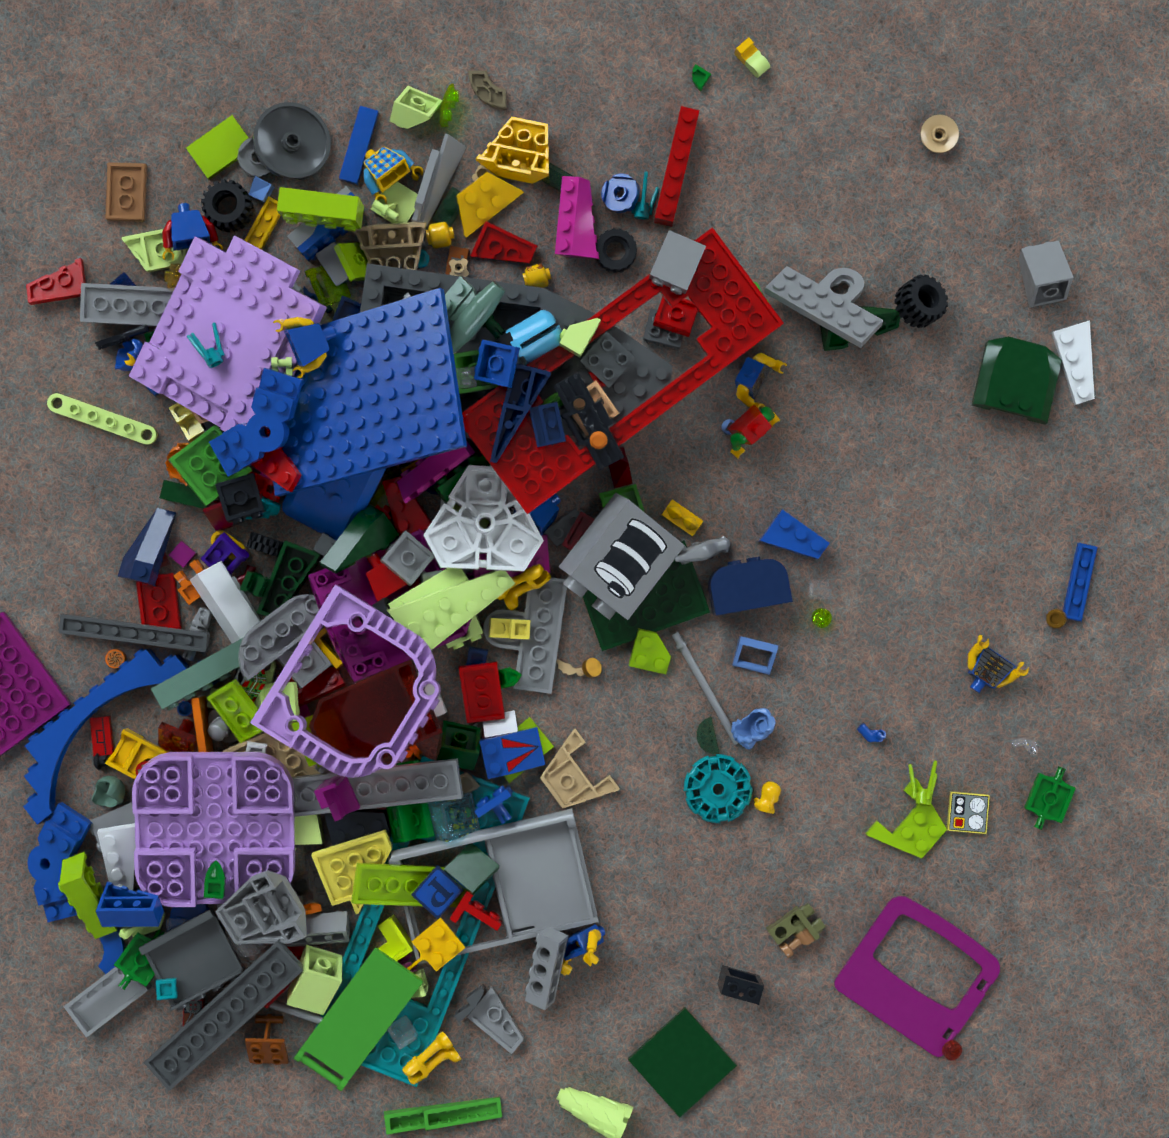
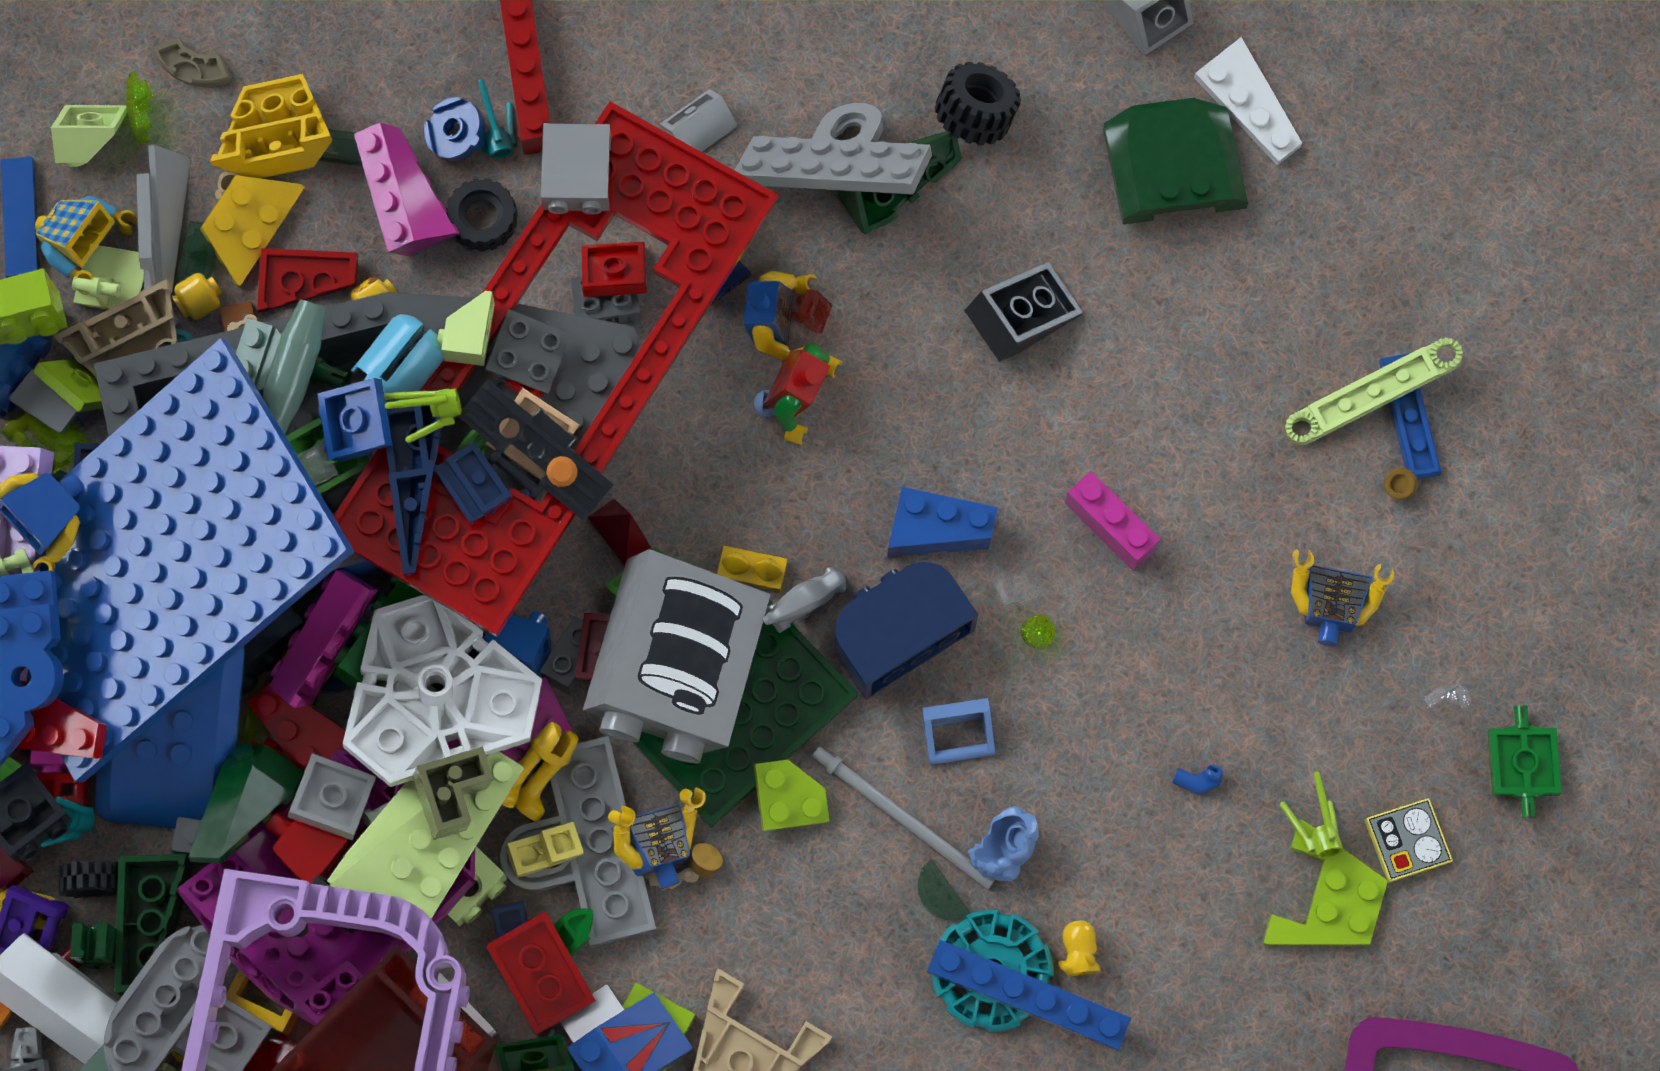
camera: 25 degrees left, 15 degrees down
(467, 582) = (444, 784): none -> olive brick
(548, 377) = (442, 403): none -> lime plant
(571, 647) = (657, 838): none -> torso
(730, 811) = (1029, 995): none -> blue plate
(759, 245) = (701, 121): none -> light grey panel
(777, 384) = (813, 310): none -> clear red tile
(888, 574) = (1112, 520): none -> dark pink brick
(893, 433) = (1022, 310): none -> black slope
(1066, 561) = (1374, 391): none -> yellowish green plate

